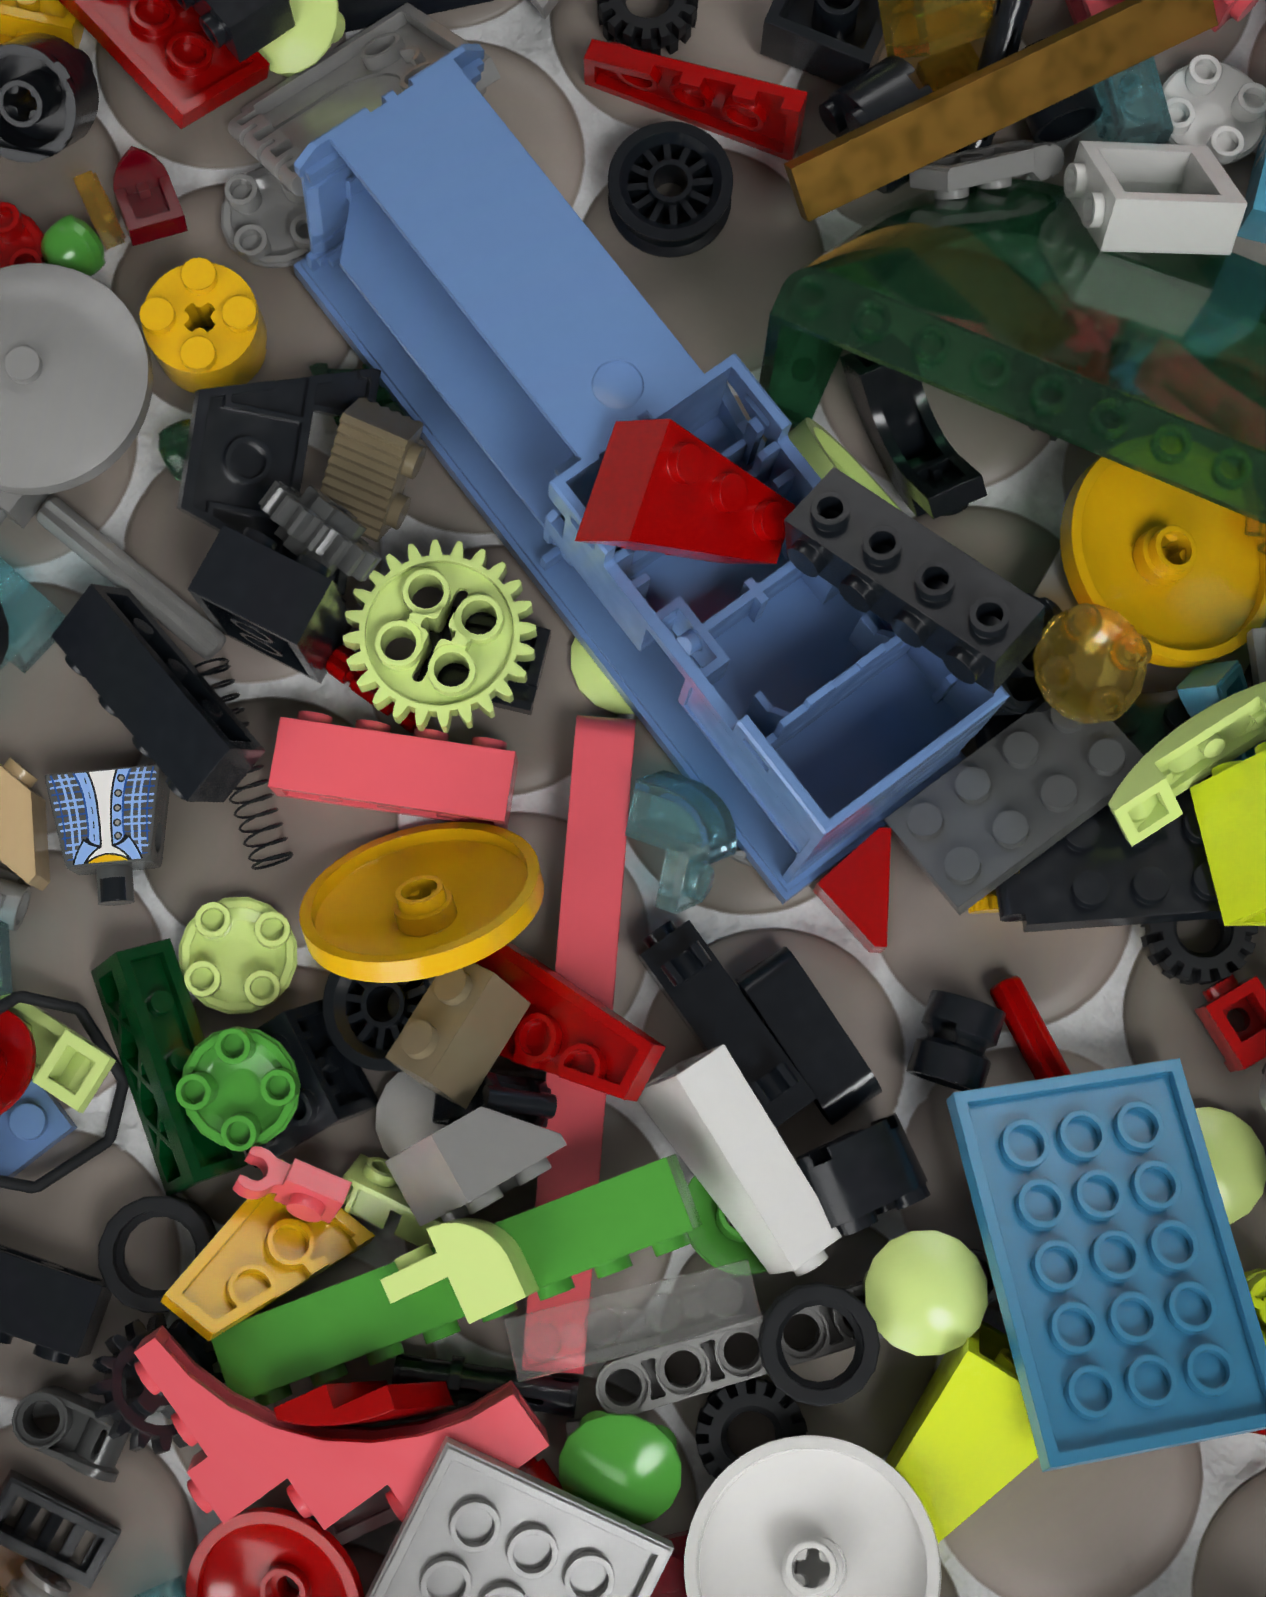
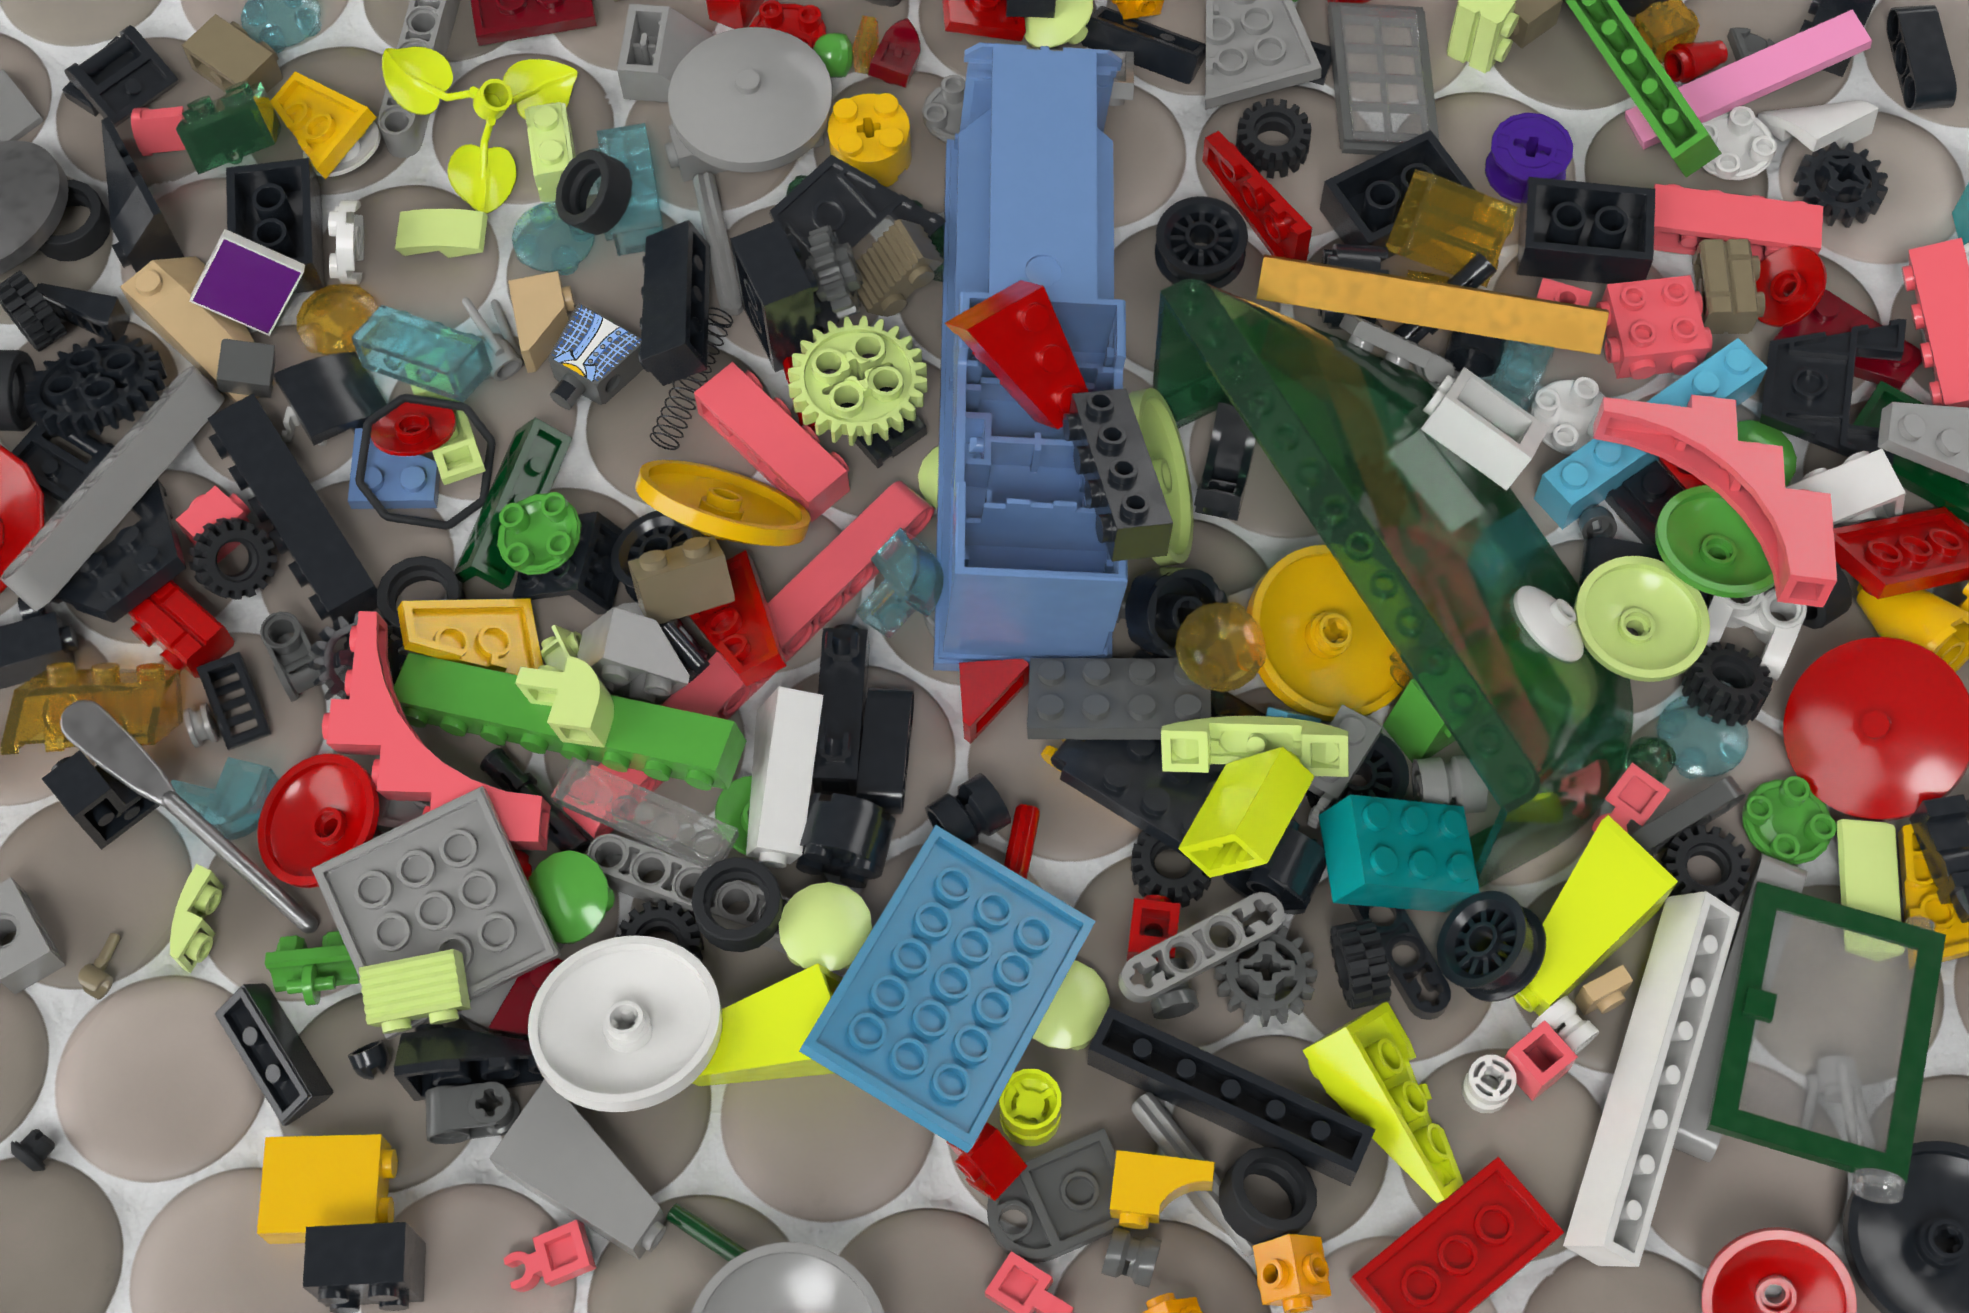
camera: 40 degrees right, 15 degrees down
(238, 955) = (600, 476): yellowish green dish -> none
(303, 1188) = (527, 613): coral plate -> none
(364, 1403) = (459, 745): red slope -> none

